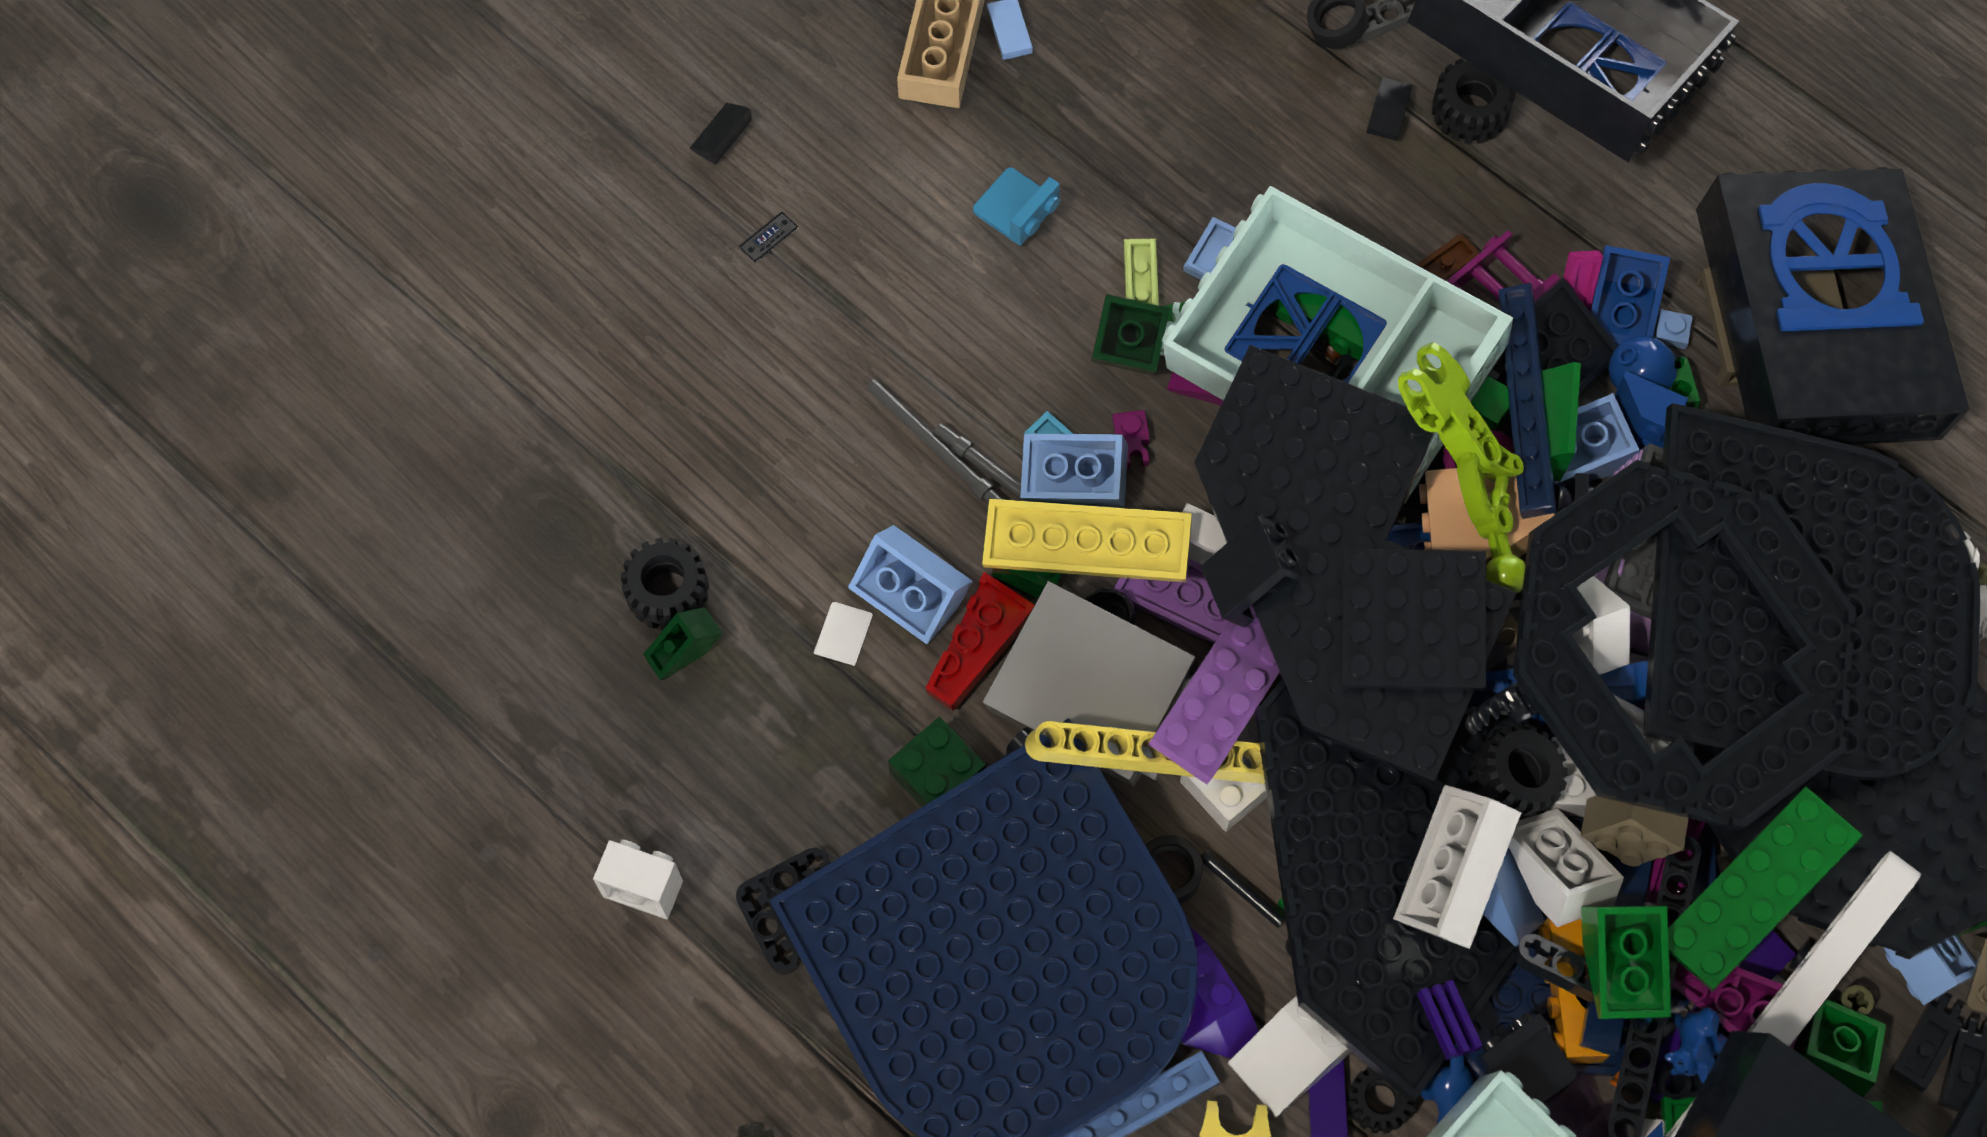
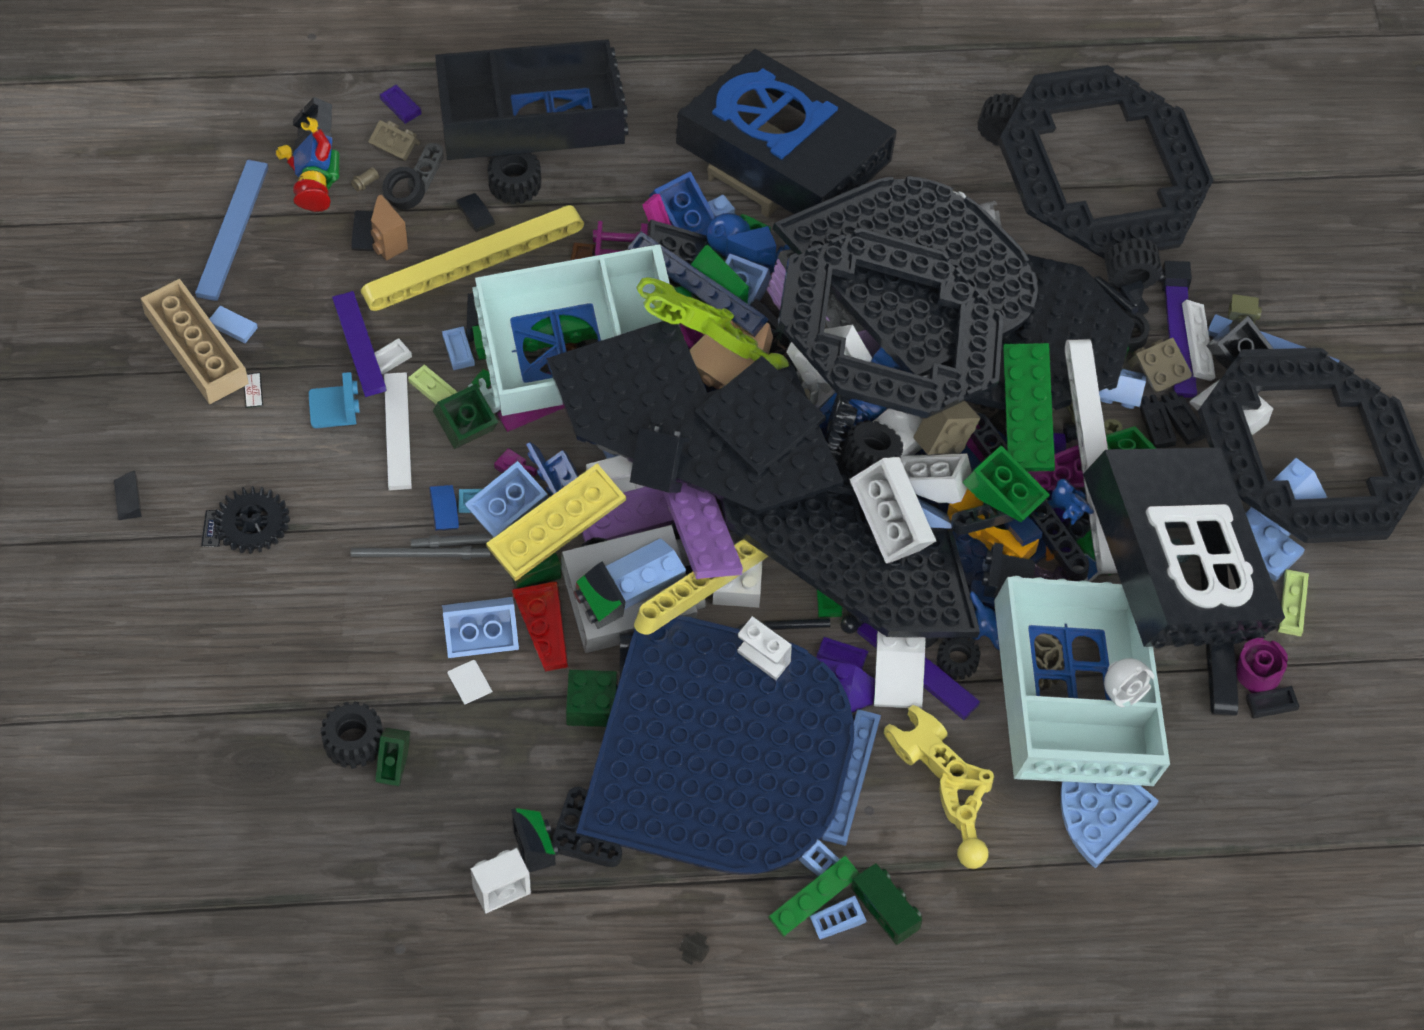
camera: 50 degrees left, 10 degrees down
(717, 865) = (533, 839): none -> black slope
(805, 244) = (250, 508): none -> black gear
(958, 119) = (253, 391): none -> white sticker
(1009, 417) = (444, 507): none -> blue slope
(1031, 668) = (600, 596): none -> black slope
(1053, 290) = (397, 431): none -> white tile
(1105, 682) = (646, 571): none -> light blue slope
(1110, 158) = (359, 344): none -> dark purple tile
(1126, 199) = (392, 355): none -> white tile
(1133, 892) = (764, 648): none -> white panel
(1164, 482) = (556, 471): none -> blue bracket
(1249, 31) = (361, 235): none -> black slope
(1256, 972) = (842, 652): none -> dark purple tile
(1264, 51) = (388, 230): none -> medium nougat slope
(1334, 160) = (471, 258): none -> light yellow beam
(1455, 1017) = (957, 584): dark purple tile -> none

